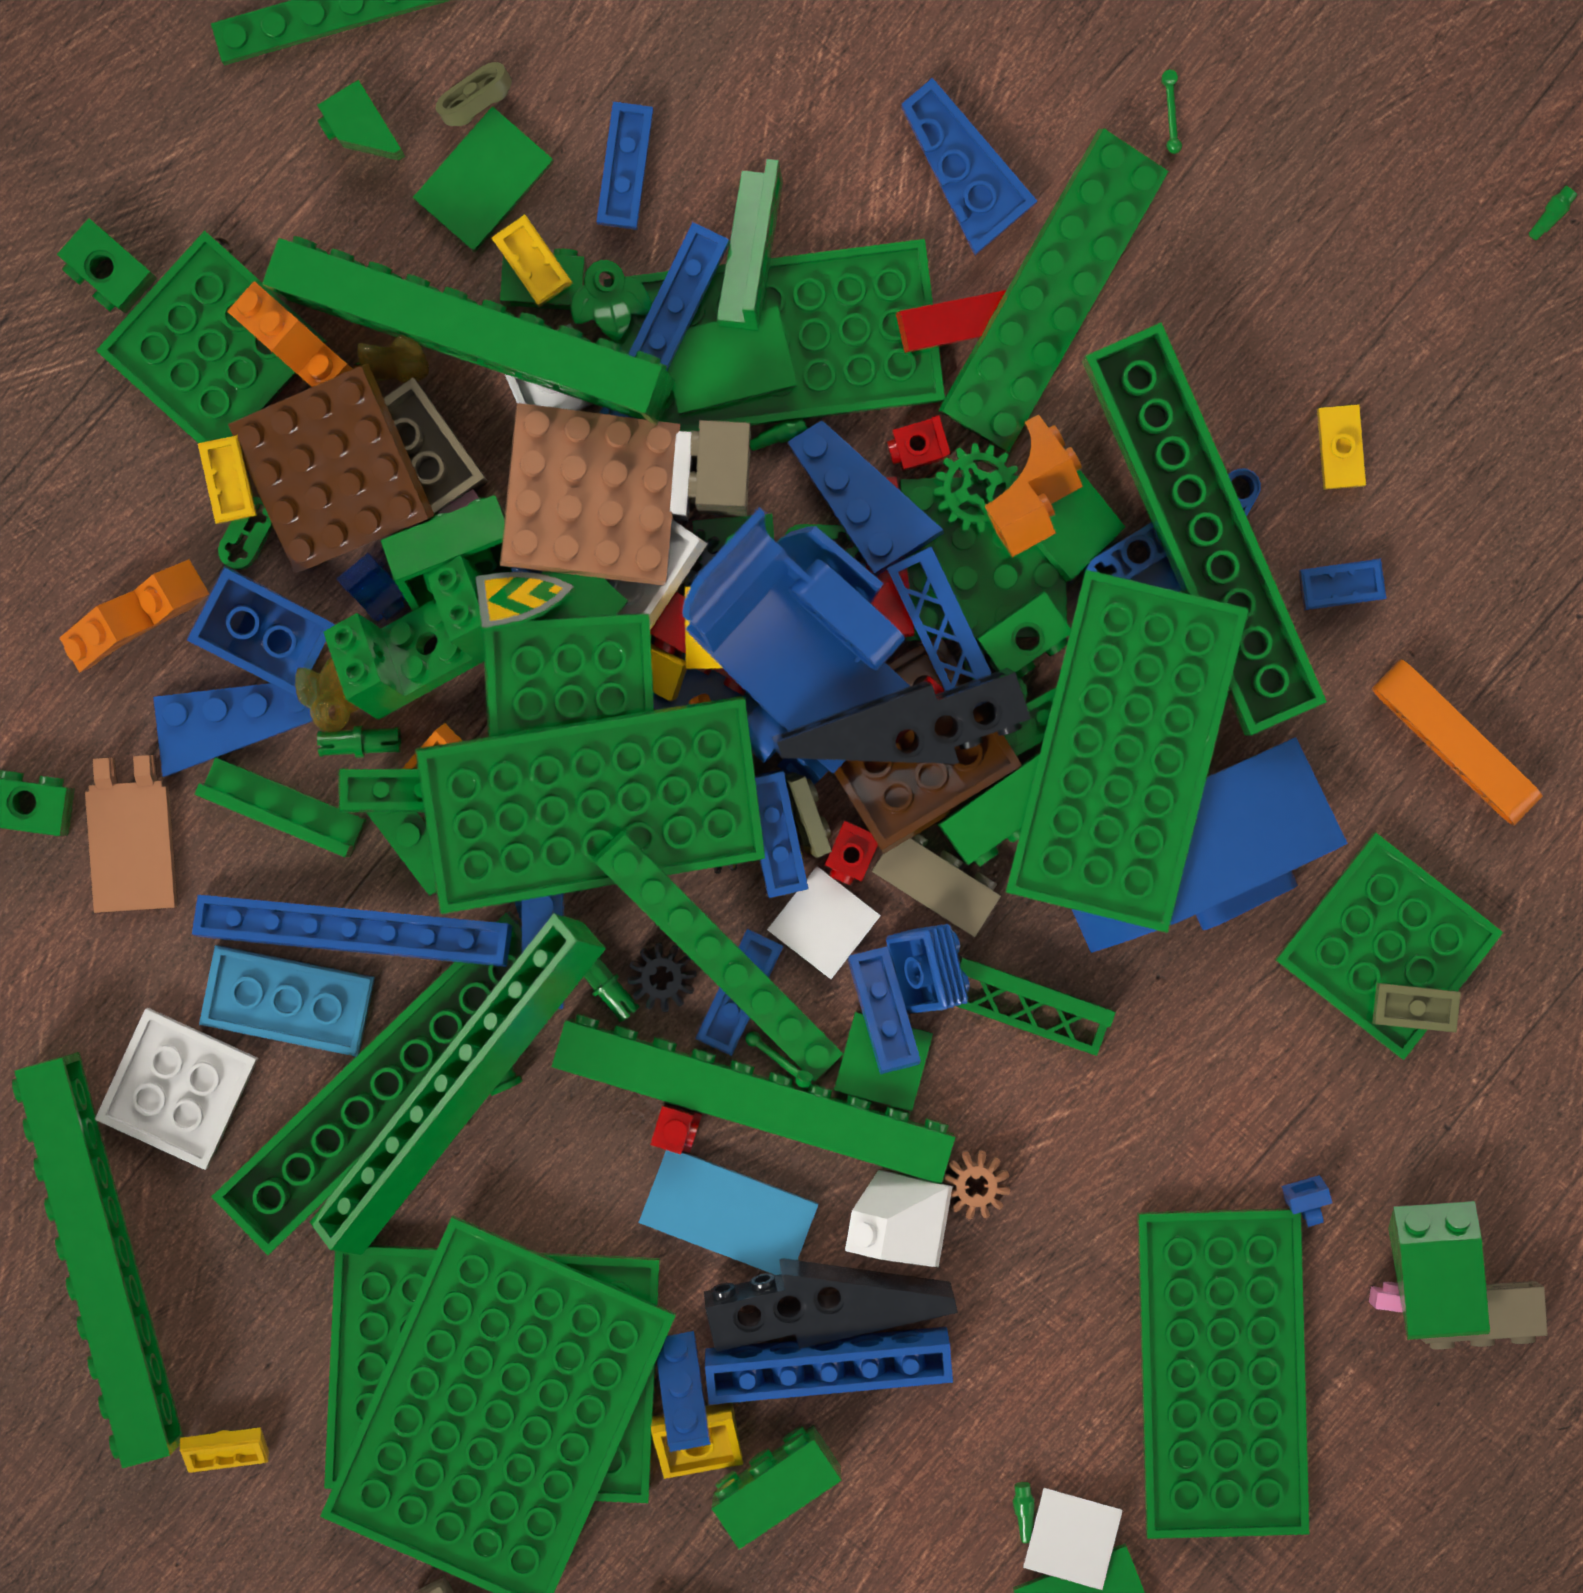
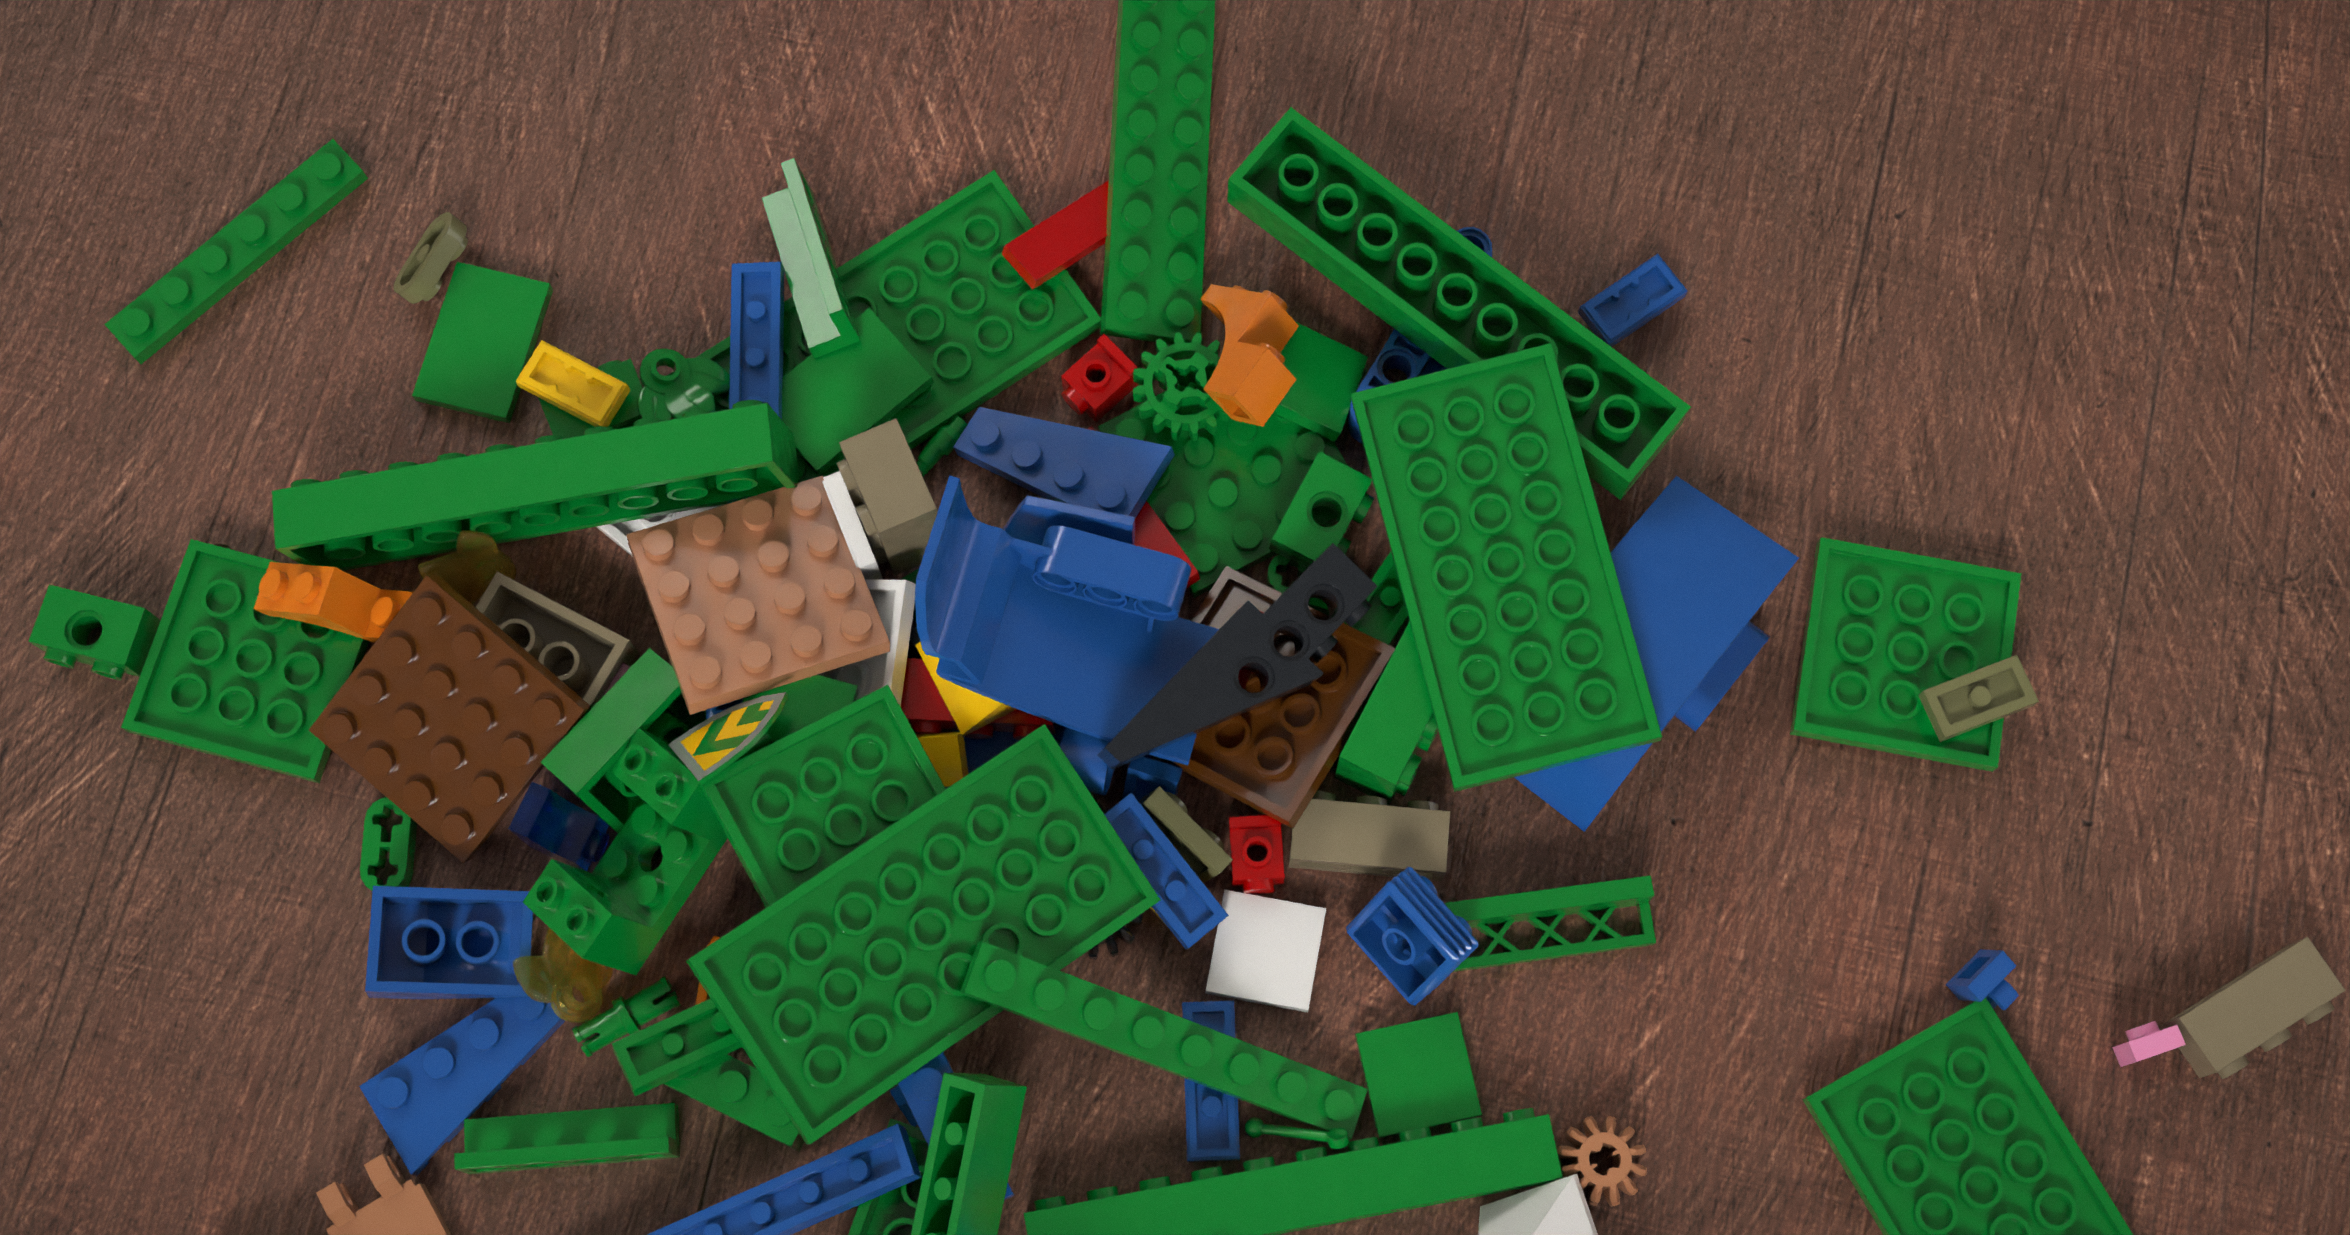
camera: 30 degrees left, 15 degrees down
(133, 614) = (279, 1011): orange arch -> none
(227, 479) = (336, 793): yellow plate -> none
(357, 123) = (316, 347): green slope -> none
(610, 990) = (1057, 1153): green axle -> none
(625, 165) = (632, 253): blue plate -> none
(652, 968) = (1094, 1105): black gear -> none
(884, 1010) = (1388, 1011): blue plate -> none
(952, 615) = (1244, 541): blue fence -> none
(969, 171) = (1008, 85): blue wing -> none
(1341, 447) = (1550, 167): yellow plate -> none
(1440, 1269) = (2182, 976): green slope -> none
(1457, 742) = (1850, 401): orange beam -> none

